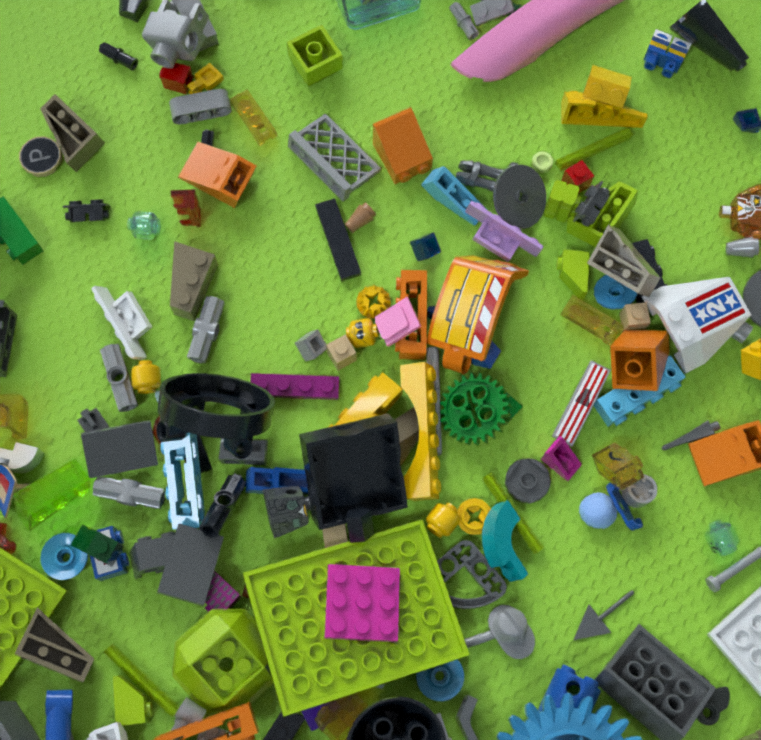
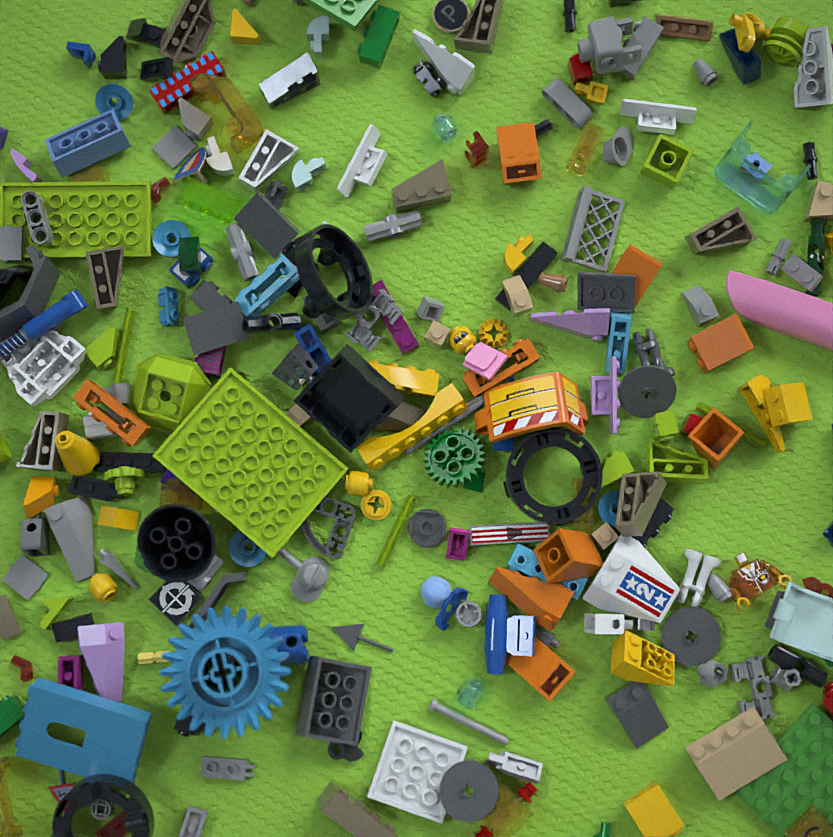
camera: 60 degrees right, 10 degrees up
(53, 408) = (266, 160): none -> white wedge
(92, 182) = (453, 69): none -> white wedge
(94, 382) = (303, 174): none -> light aqua brick
(122, 389) = (311, 198): light grey piece -> none
(142, 608) = (168, 297): none -> dark azure hinge
(146, 377) = (330, 207): yellow head -> none
(266, 40) = (657, 116): none -> white bracket
(273, 89) = (619, 147): none -> light grey piece
(288, 424) = (360, 329): none -> light grey piece
(311, 237) = (514, 255): none -> yellow brick
(353, 255) = (517, 295): none -> tan slope
(359, 524) = (314, 426): black piece -> none
(362, 603) = (260, 461): dark pink plate -> none
(403, 175) = (606, 291): none -> dark grey tile
(411, 47) = (721, 232): none -> dark tan wedge
(423, 209) = (587, 324): none -> lavender wedge
(425, 246) = (562, 344): slope -> none
(466, 107) = (700, 305): none -> light grey slope
(497, 541) = (366, 530): teal arch -> none
(514, 109) = (720, 343): none -> orange slope
(542, 162) = (692, 391): yellowish green tile -> none
(560, 288) = (589, 466): none -> black piece
(595, 197) = (679, 449): dark grey hinge -> none
(605, 159) = (715, 438): none -> orange slope
(618, 466) = (476, 587): clear yellow brick -> none
(662, 415) = (533, 596): none -> orange wedge
(680, 468) = (506, 634): none -> blue plate
(716, 241) = (694, 558): none -> white piece
(724, 360) = (606, 623): none -> white torso

